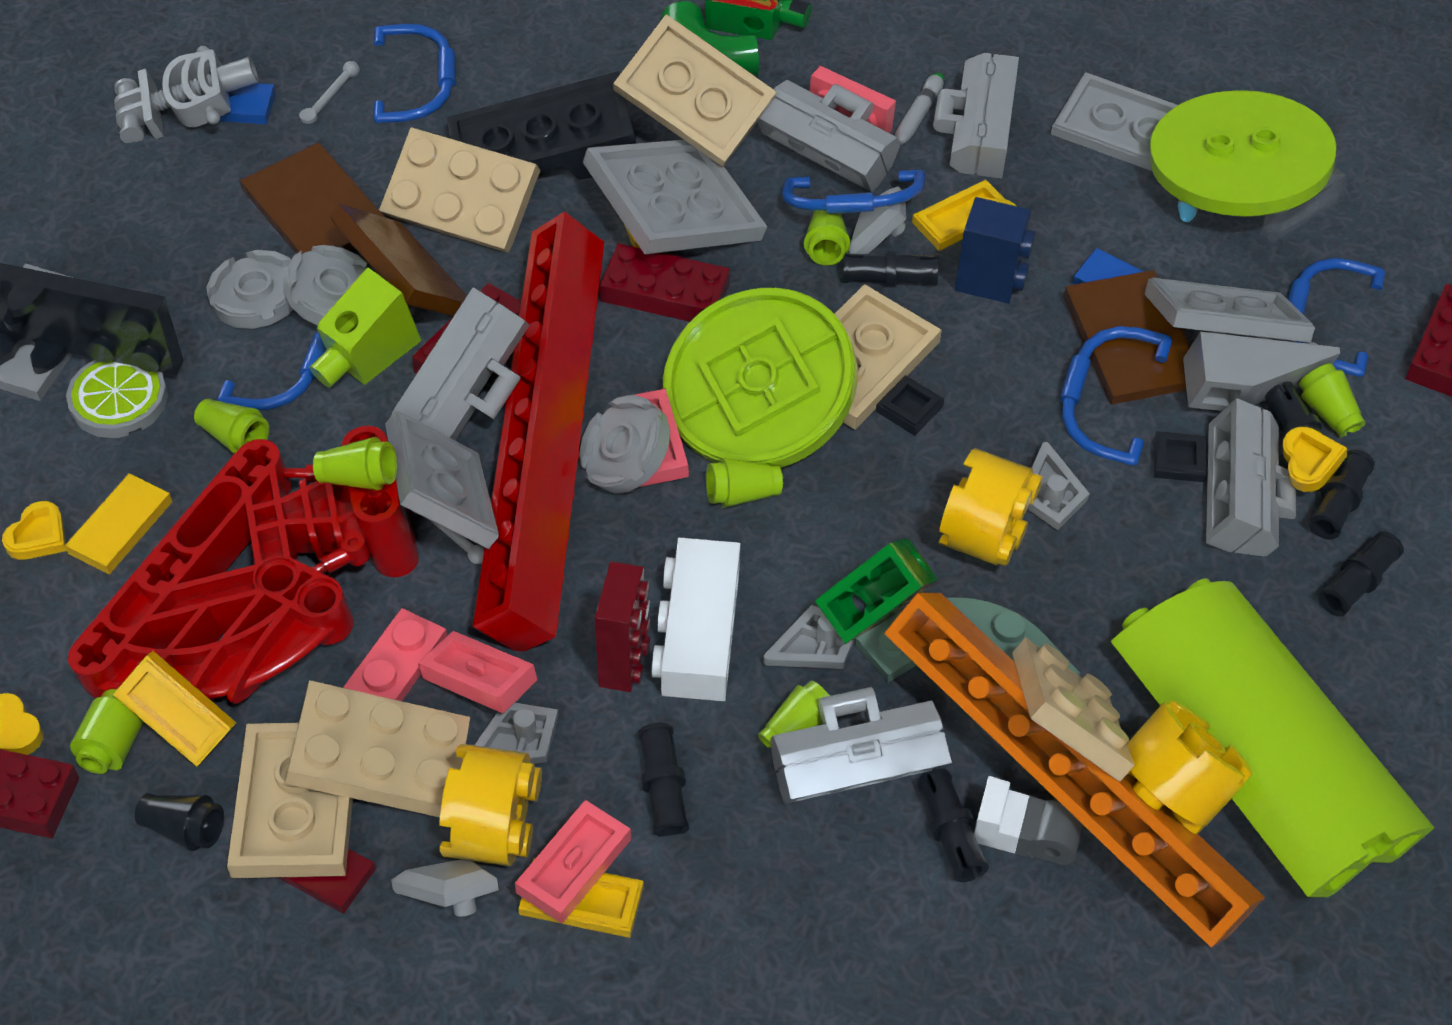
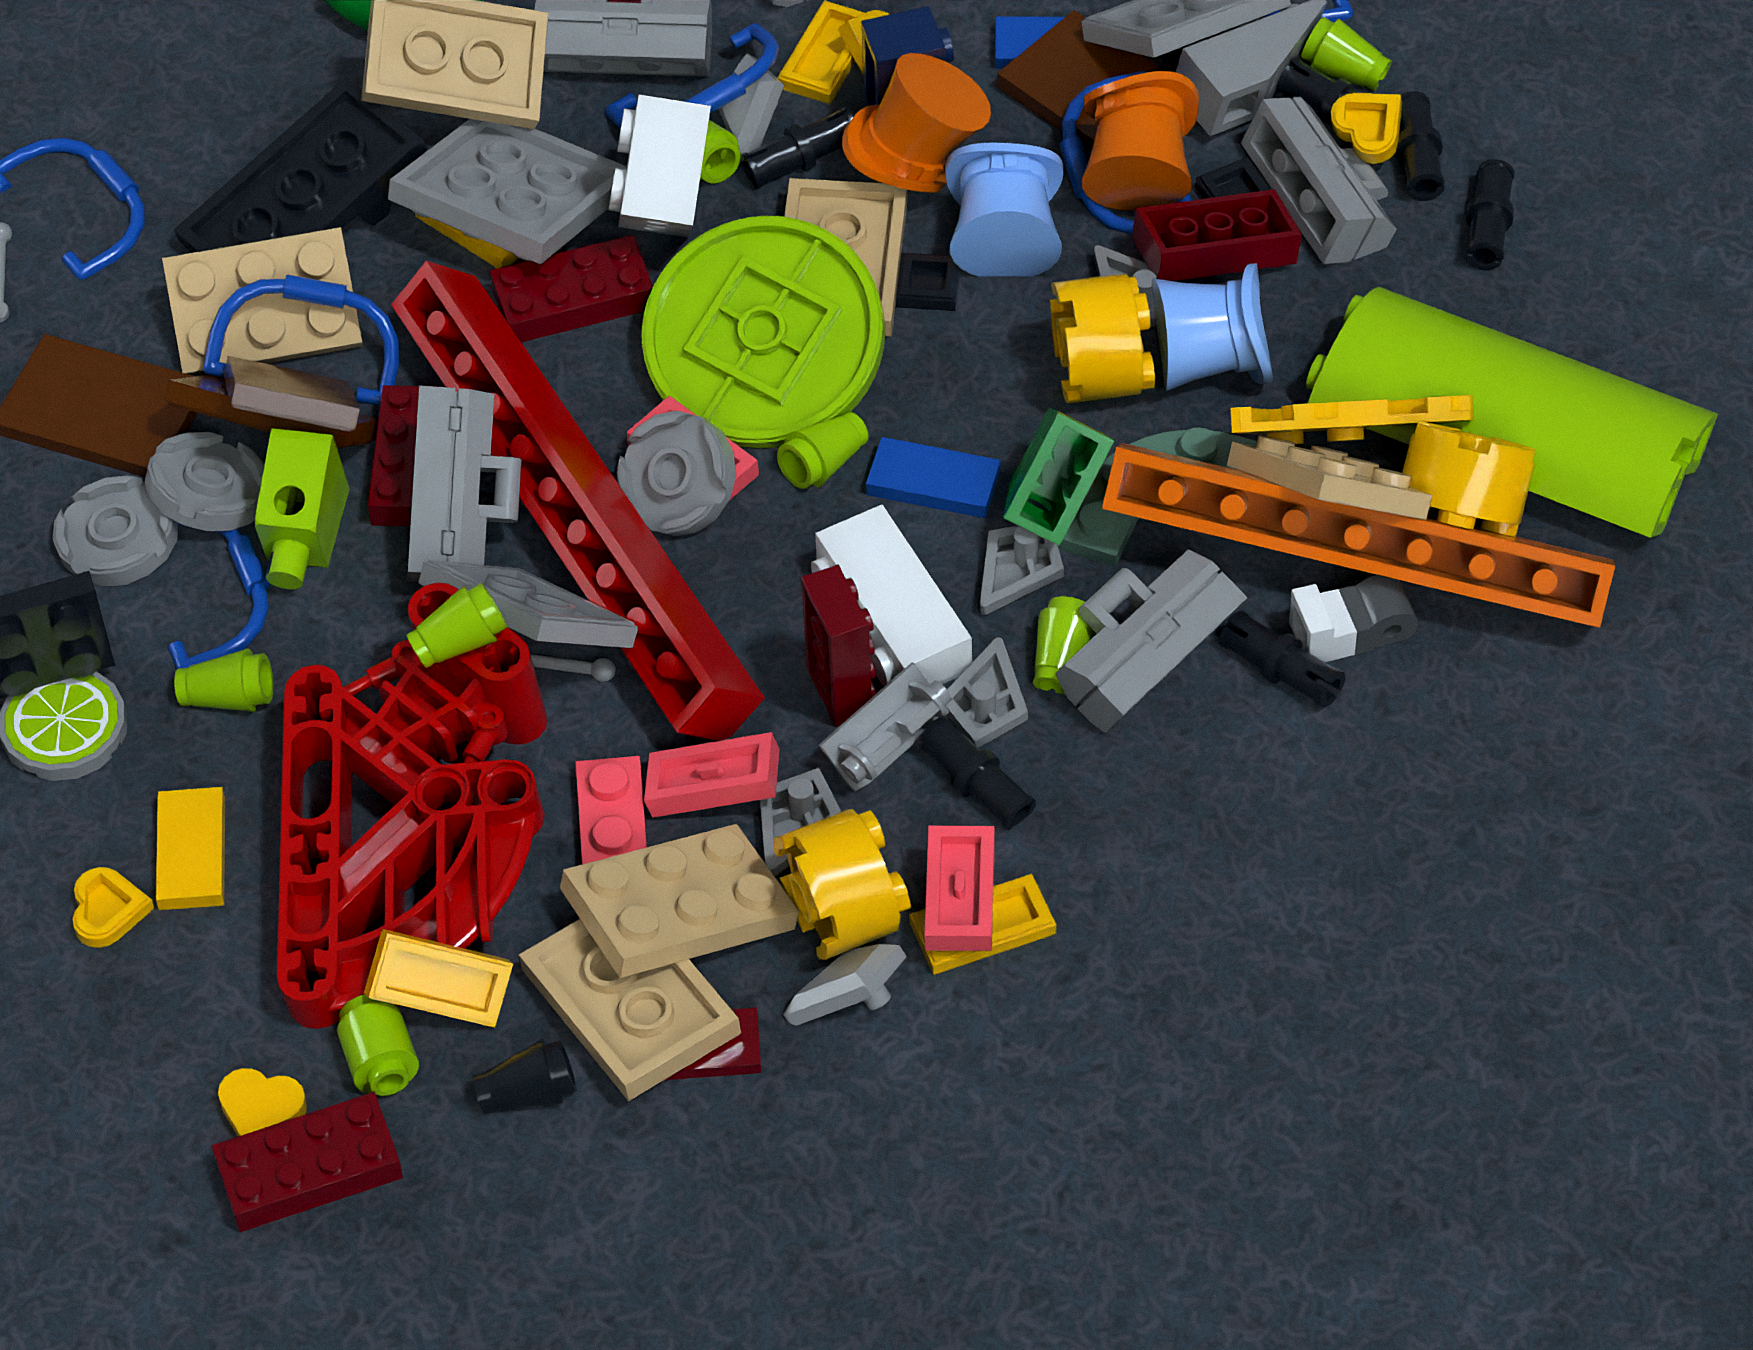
camera: 30 degrees left, 0 degrees up
(408, 252) = (290, 394): none -> reddish brown tile
(486, 197) = (312, 292): none -> blue piece
(620, 707) = (885, 726): none -> light grey hinge
(717, 726) = (987, 697): none -> light grey piece
(769, 227) = (662, 167): none -> white piece
(805, 545) = (933, 477): none -> blue tile
(970, 289) = (917, 124): none -> orange hat
(992, 380) = (1004, 208): none -> light blue hat
(1075, 544) = (1211, 329): none -> light blue hat
(1122, 380) = (1140, 140): none -> orange hat
(1124, 667) = (1348, 419): none -> yellow wing
(1136, 480) = (1216, 235): none -> dark red piece

